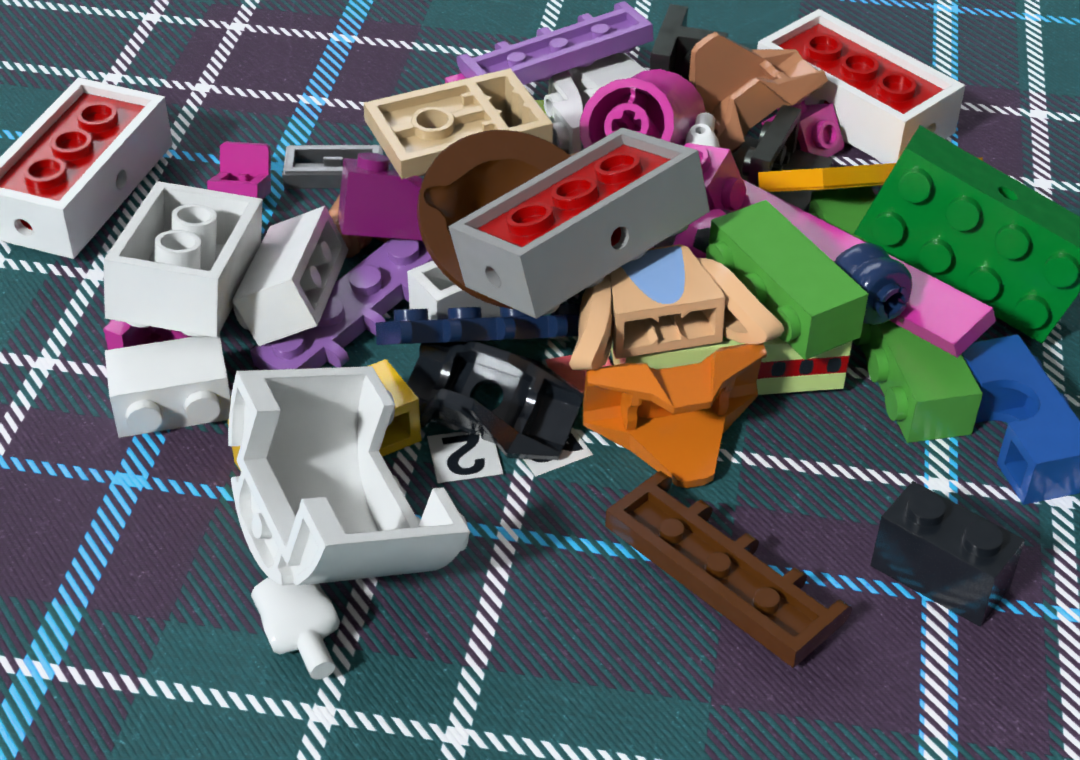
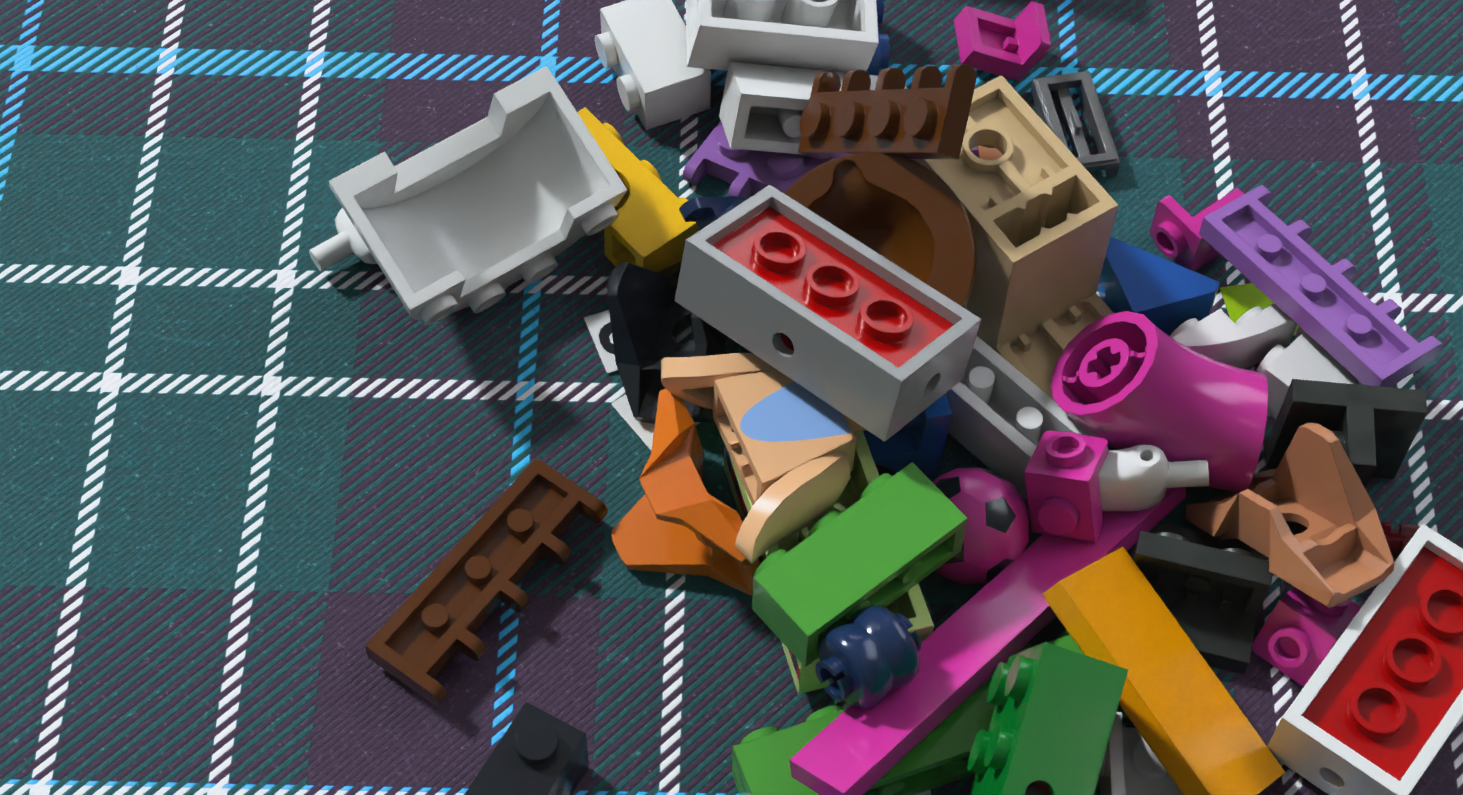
camera: 80 degrees right, 15 degrees up
(390, 165) = (890, 120): none -> reddish brown hinge

